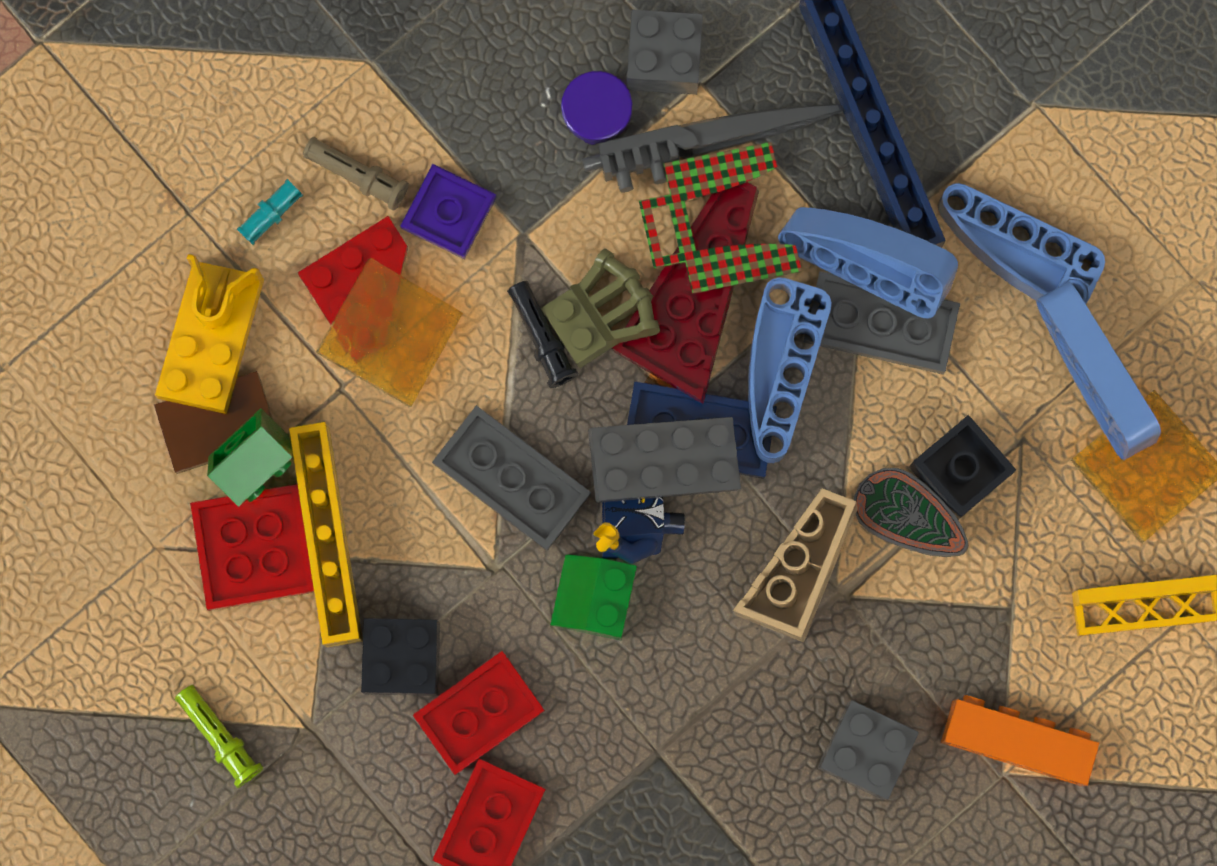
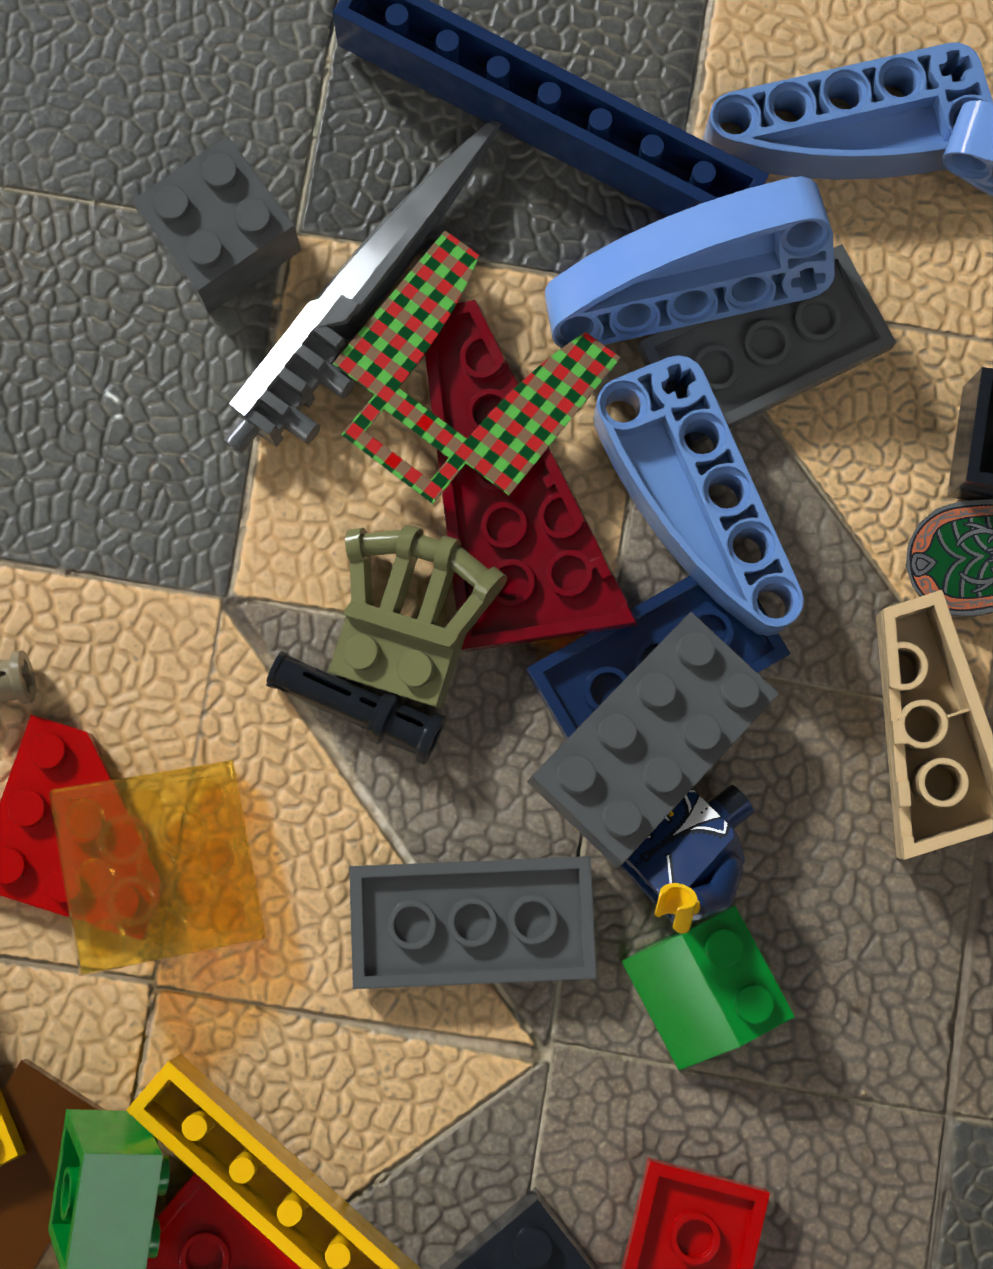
camera: 45 degrees left, 0 degrees up
(448, 211) = (105, 645): dark purple plate -> none
(596, 107) = (188, 362): dark purple tile -> none

